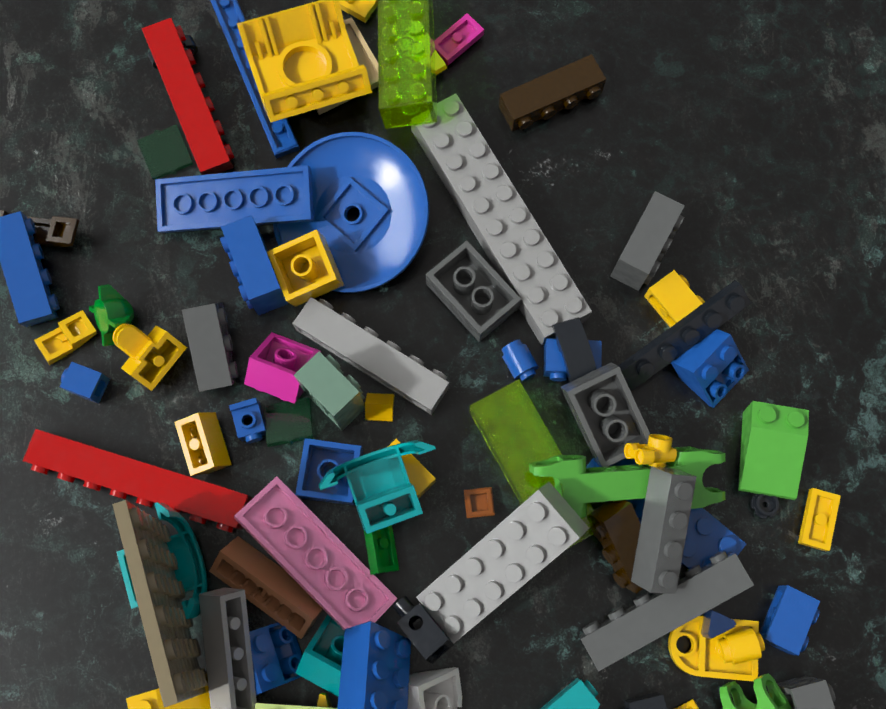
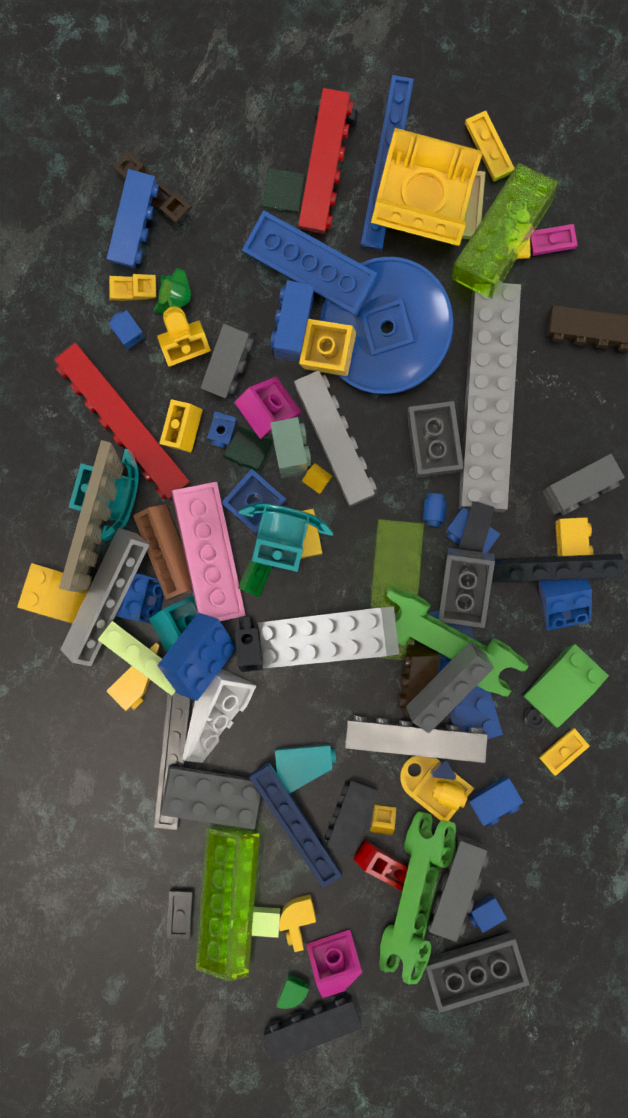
camera: 30 degrees right, 10 degrees up
(479, 502) = (341, 588): dark orange tile -> none
(655, 453) = (480, 634): yellow plate -> none

